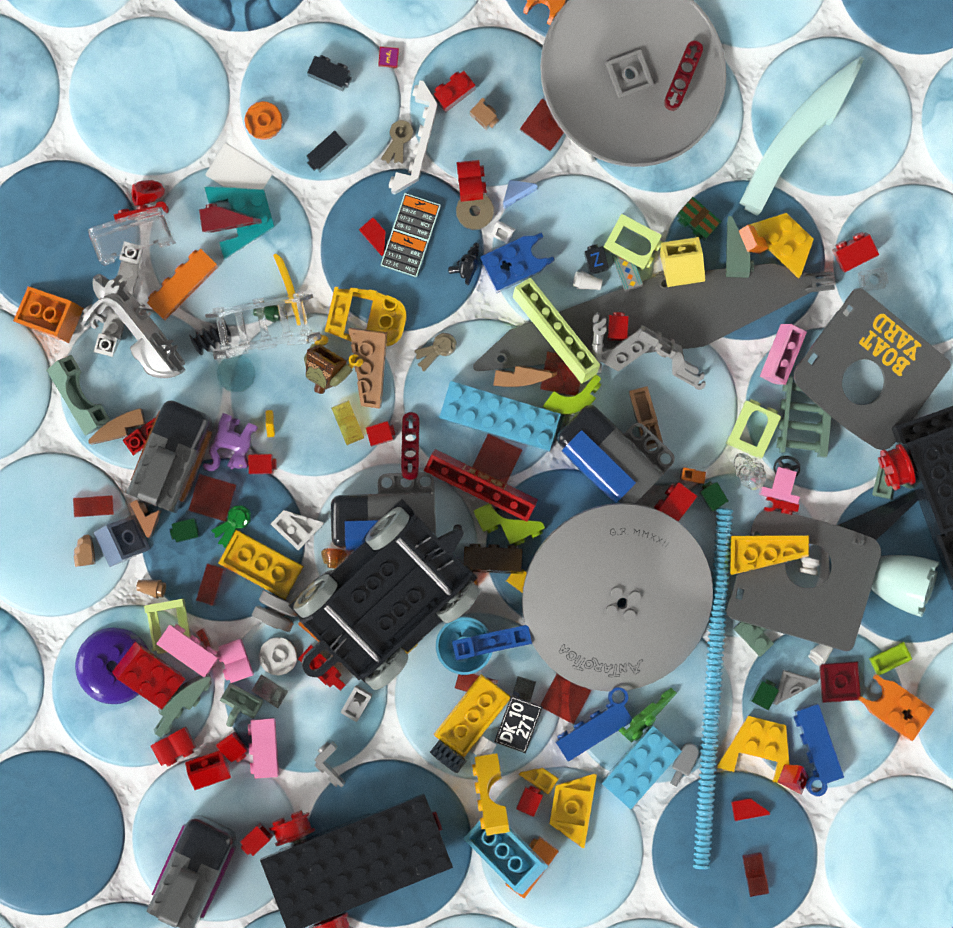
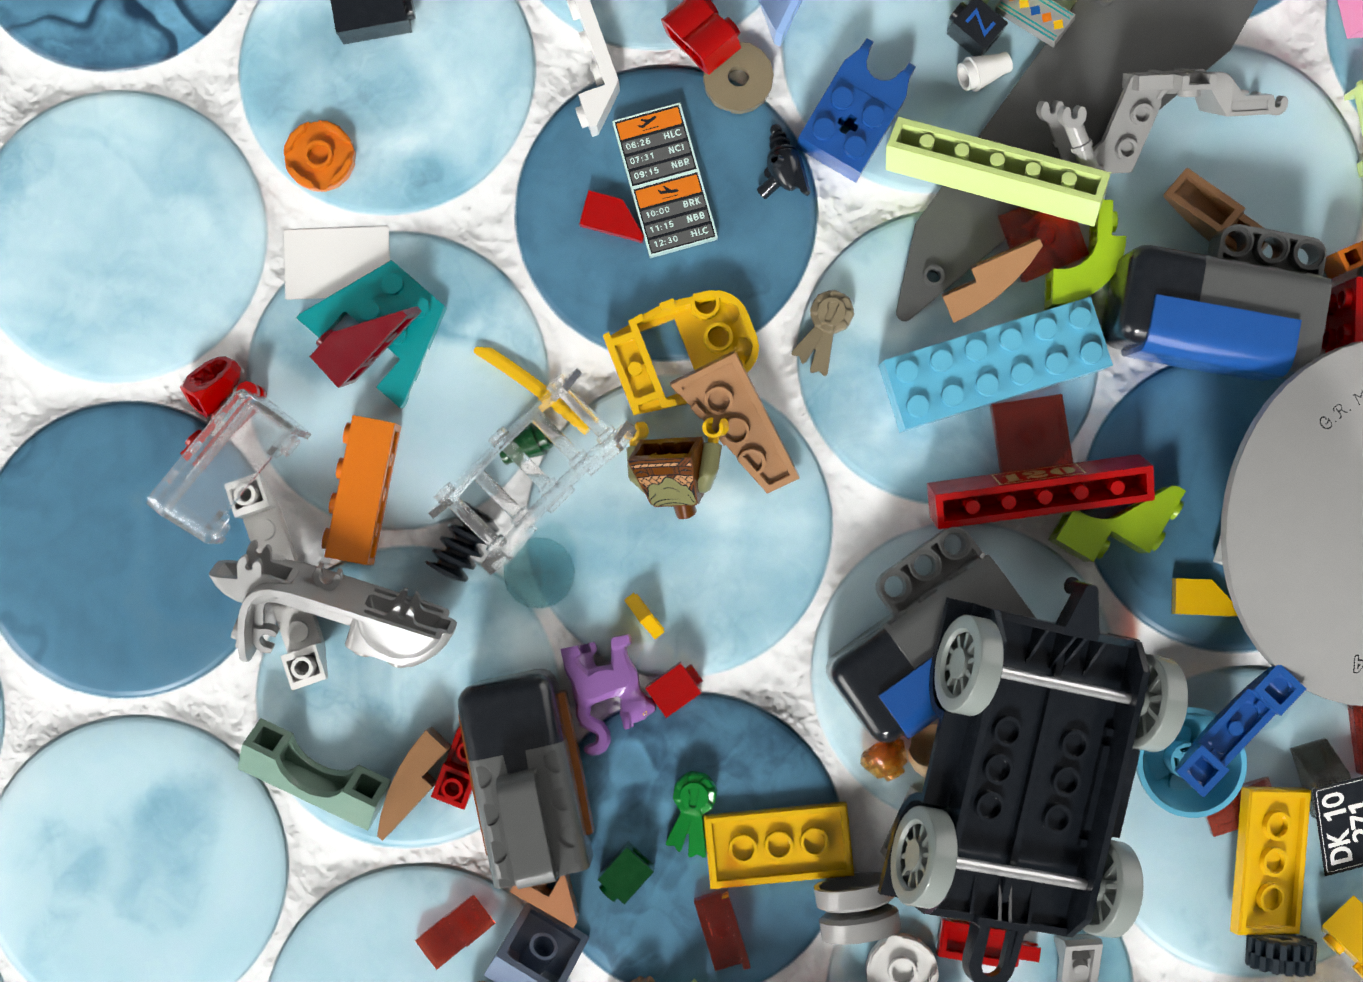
camera: 30 degrees left, 0 degrees up
(48, 314) = (184, 677): orange slope -> none
(212, 497) = (633, 792): clear red plate -> none
(296, 528) = (795, 751): white wing -> none
(326, 152) = (449, 136): black brick -> none
(347, 422) = (764, 533): clear yellow slope -> none
(380, 433) = (827, 516): red brick -> none
(401, 133) = (545, 34): dark tan piece -> none
(410, 445) = (893, 501): dark red beam -> none
(483, 747) = (1318, 898): white slope -> none
(494, 559) = (1143, 590): dark brown brick -> none
(503, 232) = (803, 80): white slope -> none
(617, 327) = (1089, 95): red brick -> none

